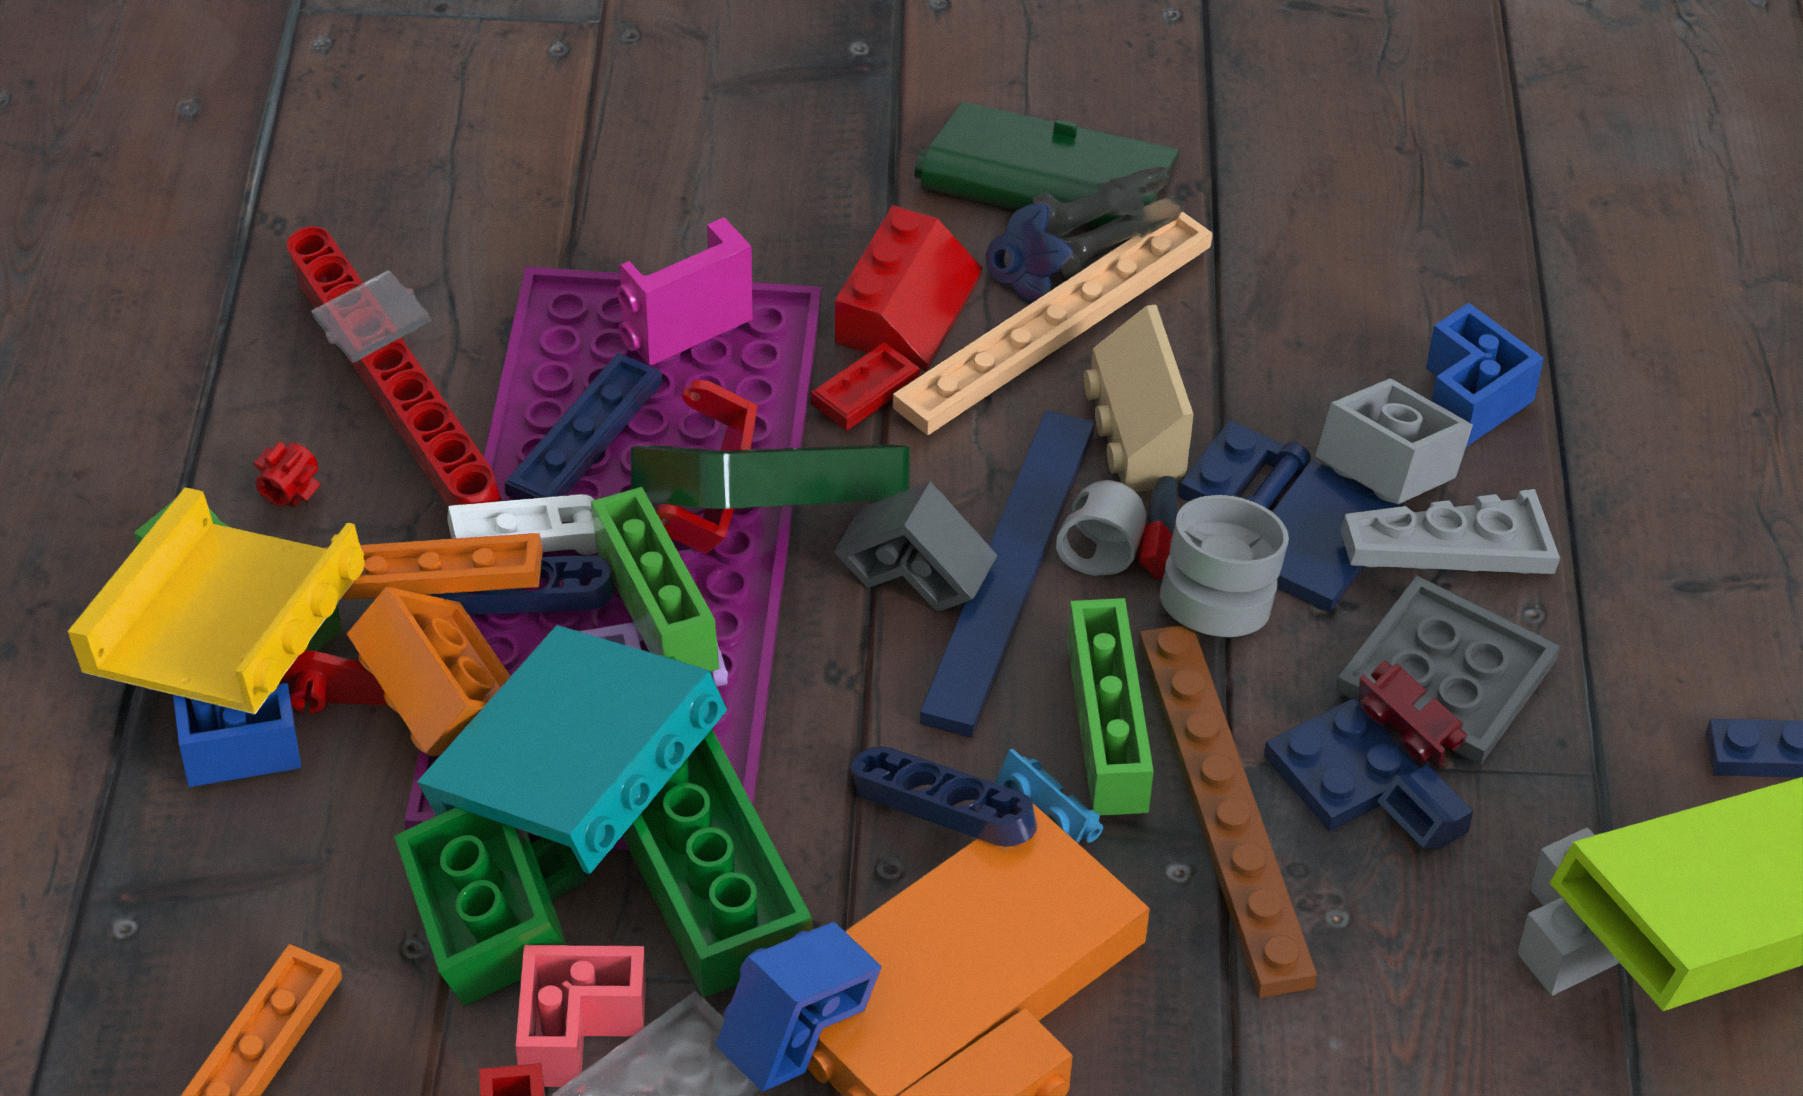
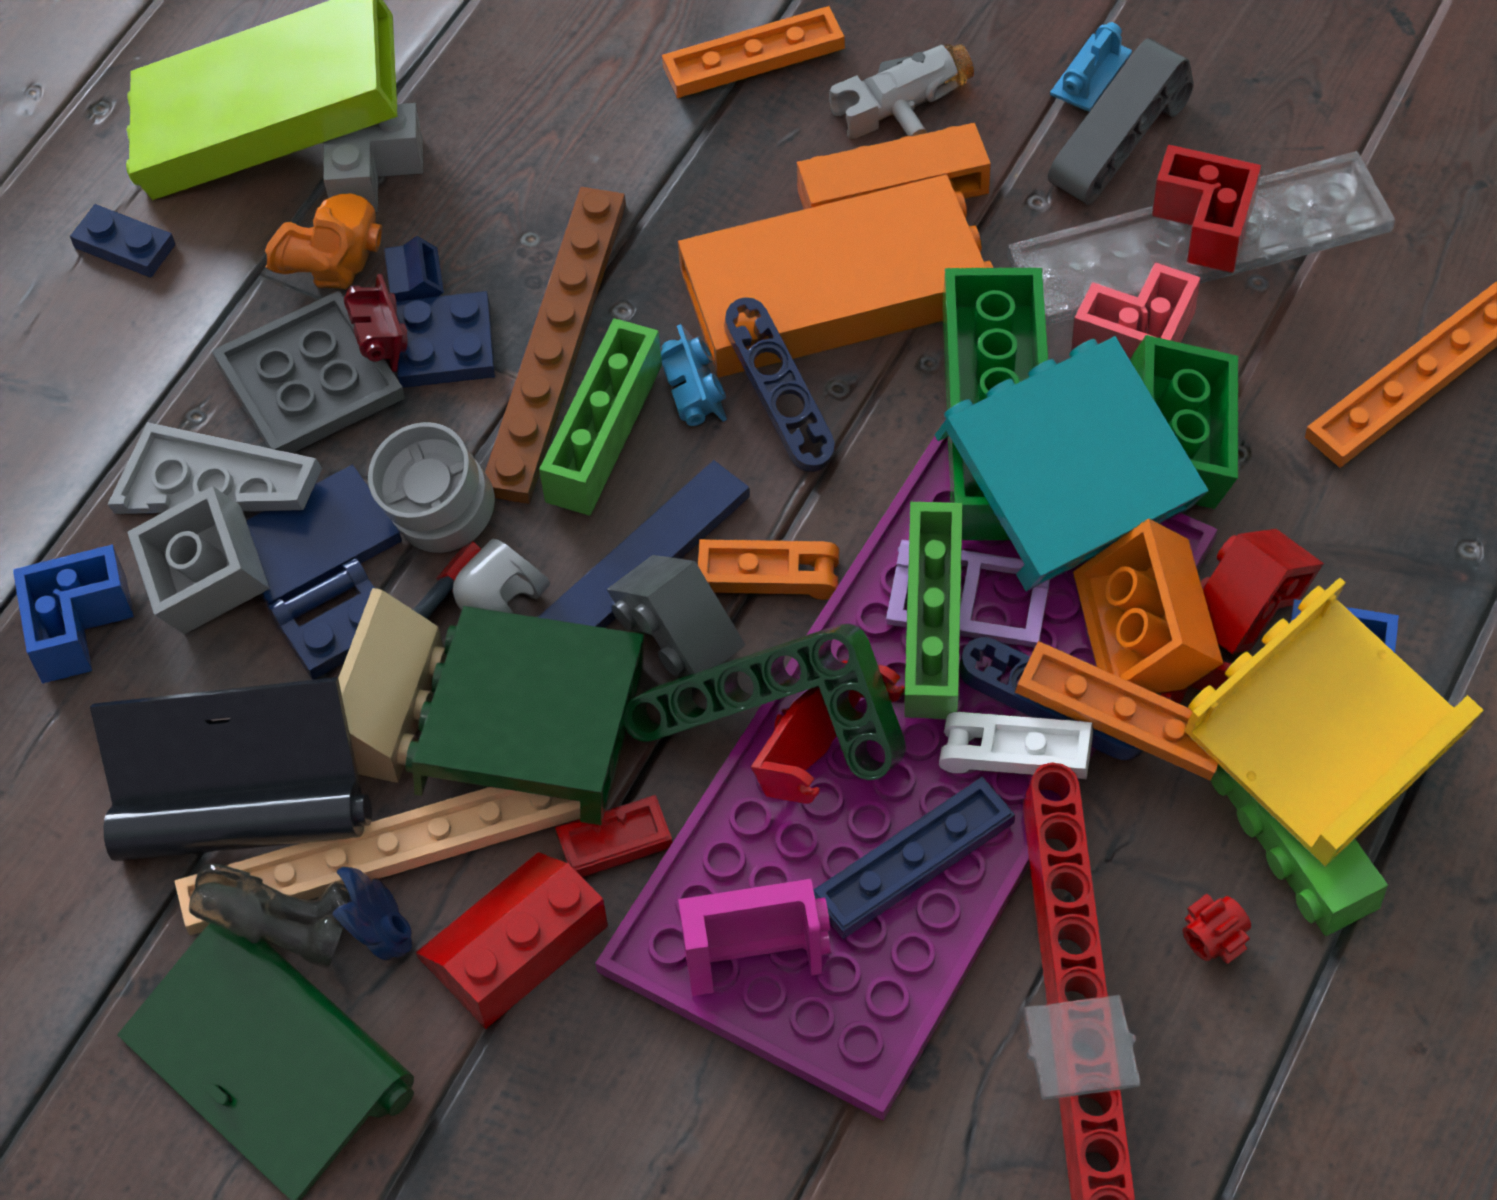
camera: 150 degrees left, 10 degrees up
(335, 763) = (1252, 582): none -> red brick
(789, 998) = (979, 226): blue brick -> none
(856, 644) = (769, 566): none -> orange plate
(996, 411) = (529, 707): none -> dark green panel
(1199, 272) = (250, 781): none -> black door
(1524, 795) = (333, 247): none -> orange head

